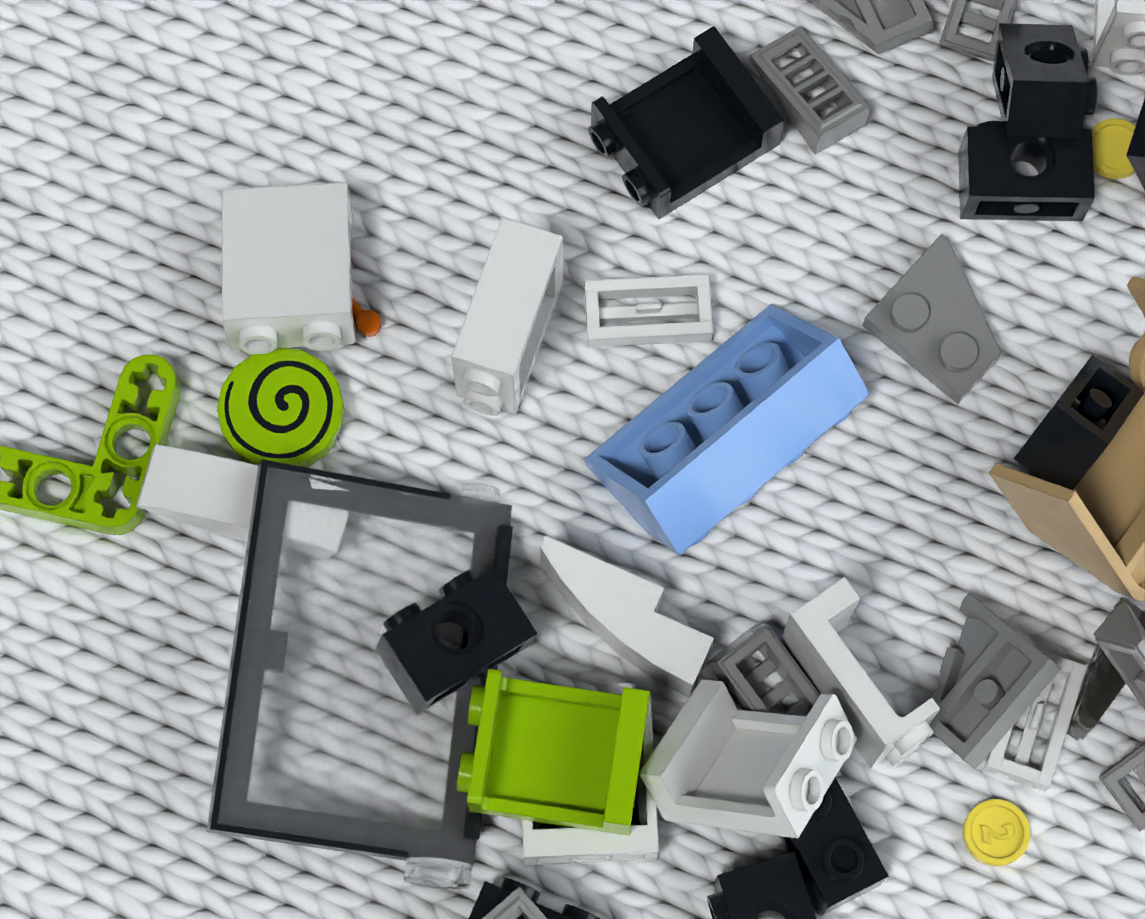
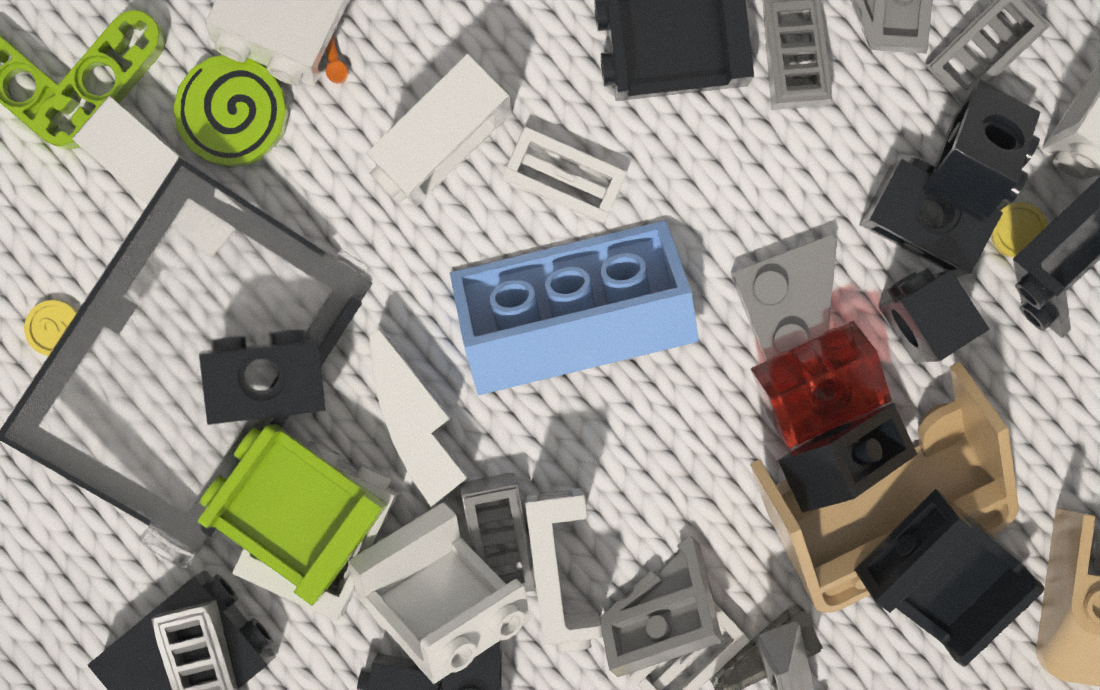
camera: 25 degrees right, 15 degrees up
(198, 716) = (47, 323): none -> light yellow piece
(1012, 374) = (821, 384): none -> clear red brick
(1079, 253) = (932, 315): none -> black brick

